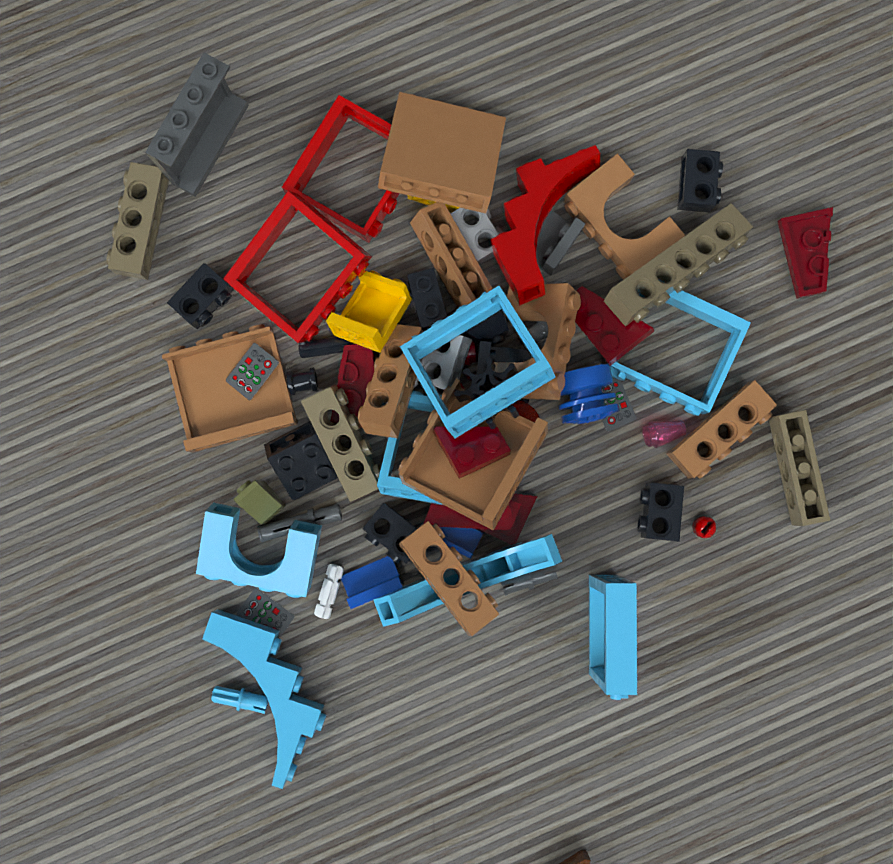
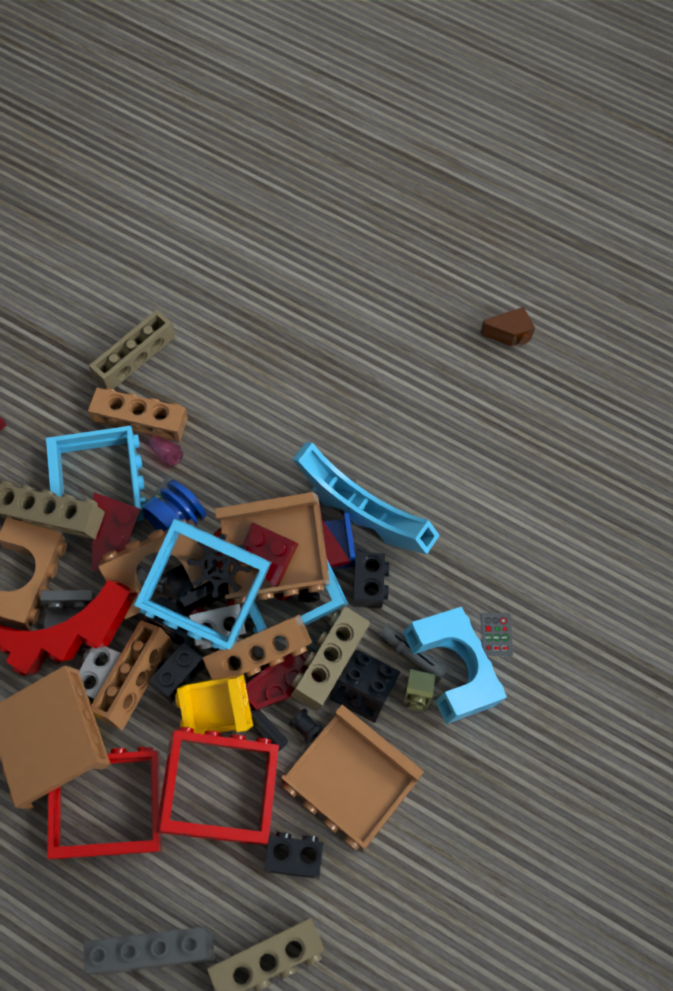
camera: 125 degrees left, 20 degrees down
(240, 699) = (566, 606): medium azure axle -> none
(252, 371) = (325, 771): dark grey sticker -> none
(293, 714) = (523, 620): medium azure arch -> none
(329, 591) = (445, 599): white axle -> none
(371, 581) = (416, 573): blue panel -> none
(485, 605) = (368, 546): medium nougat brick -> none
(613, 635) = (354, 354): medium azure window -> none
(669, 512) = (220, 412): black brick -> none
(700, 523) = (213, 388): red hinge -> none

